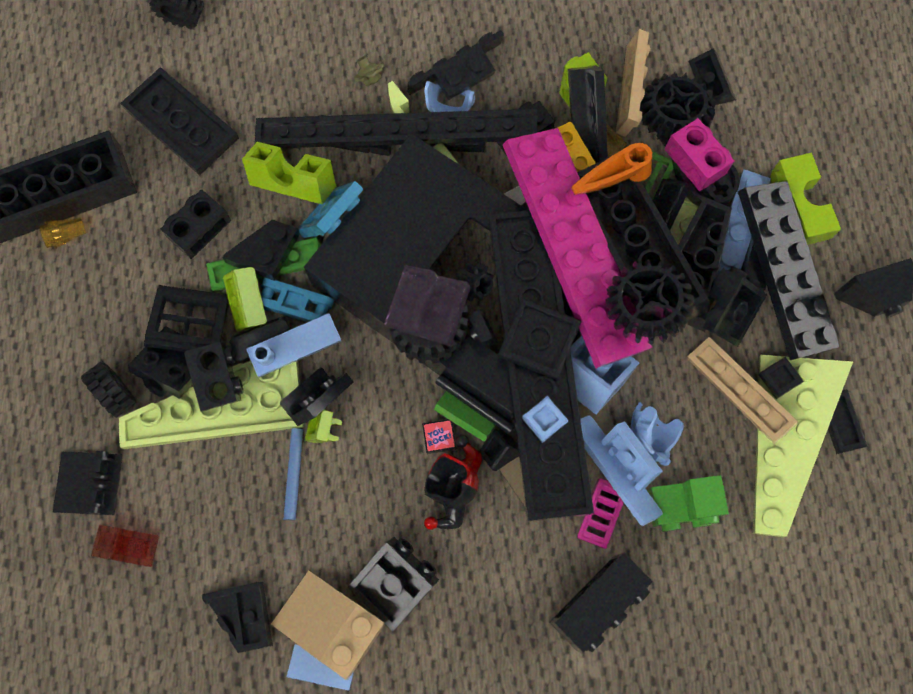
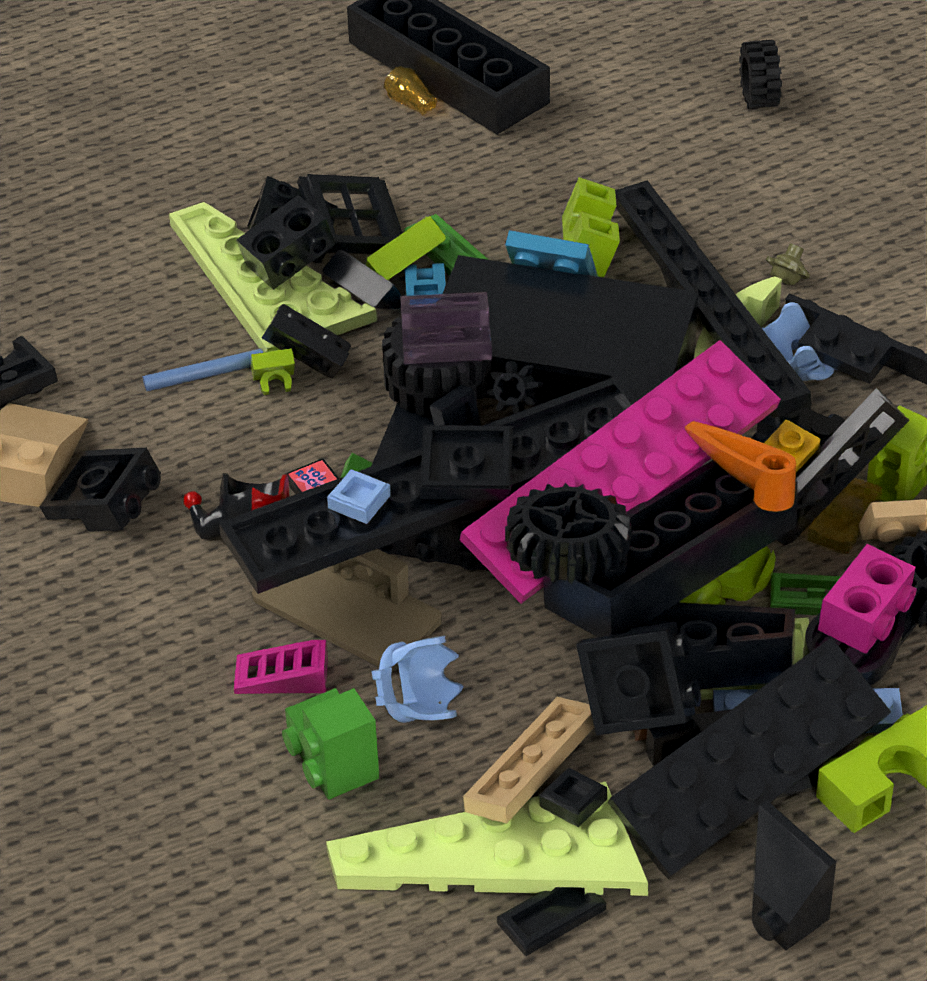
camera: 70 degrees right, 30 degrees down
(87, 483) = (117, 210): black hinge -> none
(108, 389) = (232, 177): black tyre -> none
(125, 545) = (55, 261): clear red slope -> none
(180, 121) = (611, 134): black plate -> none
(201, 228) = (480, 186): black brick -> none
(264, 249) = (472, 241): black wing -> none
(293, 345) = (351, 294): light blue piece -> none
(599, 384) = (464, 591): light blue brick -> none
(602, 603) = (151, 674): black brick -> none
(624, 465) = (344, 642): light blue bracket -> none
(670, 199) = (801, 600): black plate -> none

